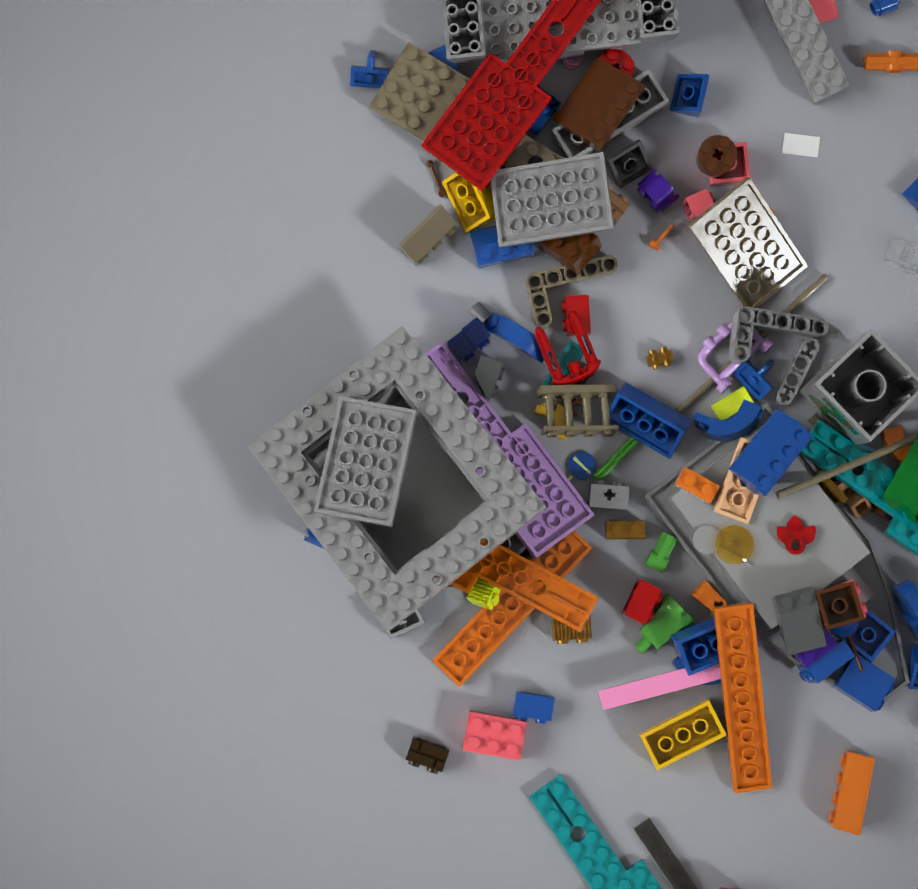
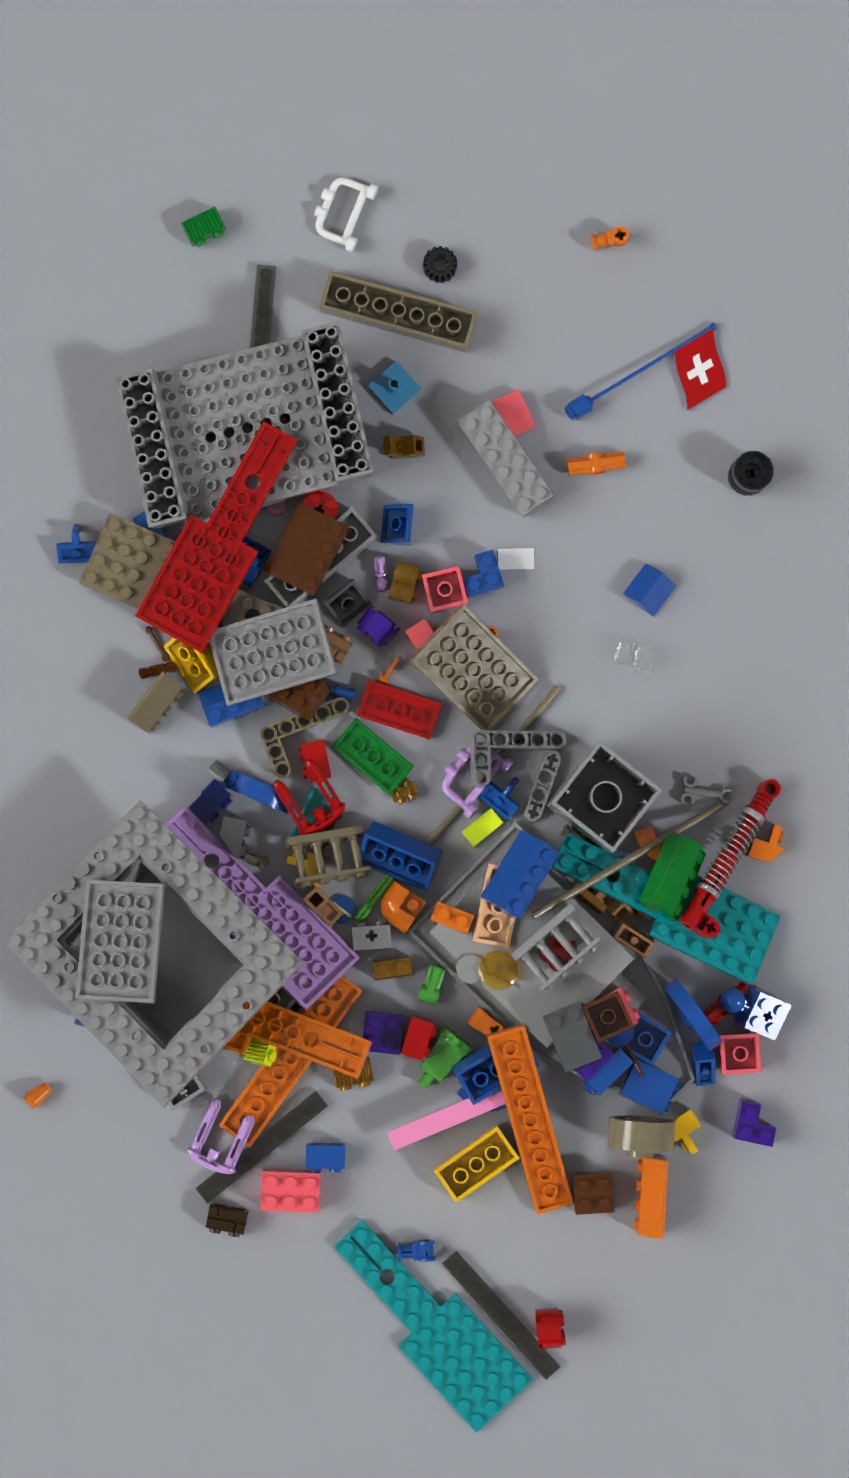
camera: 10 degrees left, 0 degrees up
(257, 605) = (37, 1095): none -> orange cone
(420, 693) = (211, 1160): none -> lavender piece
(431, 204) = (156, 670): none -> reddish brown axle
(471, 688) = (264, 1145): none -> clear smoke tile
(505, 404) = (257, 860): none -> dark tan pin
(565, 459) = (323, 906): none -> medium nougat brick
(608, 249) = (344, 692): none -> blue pin
(610, 589) = (383, 1031): none -> dark purple brick
(611, 812) = (417, 1250): none -> blue connector
(634, 319) = (373, 756): none -> green tile
(641, 470) = (400, 906): none -> orange brick
(666, 149) = (382, 583): none -> lavender axle
(666, 276) = (399, 709): none -> red plate
(686, 152) = (404, 582): none -> pearl gold brick
(706, 18) = (403, 447): none -> pearl gold brick
(721, 146) = (425, 595): reddish brown brick -> none
(733, 428) = (487, 851): blue arch -> none
(773, 156) = (489, 576): none -> blue brick
(779, 522) = (538, 941): none -> light grey fence
(793, 779) = (593, 1192): none -> reddish brown brick
(851, 729) = (641, 1135): none -> dark tan piece
(869, 533) = (632, 938): none -> medium nougat brick
(889, 728) = (684, 1124): none -> yellow brick

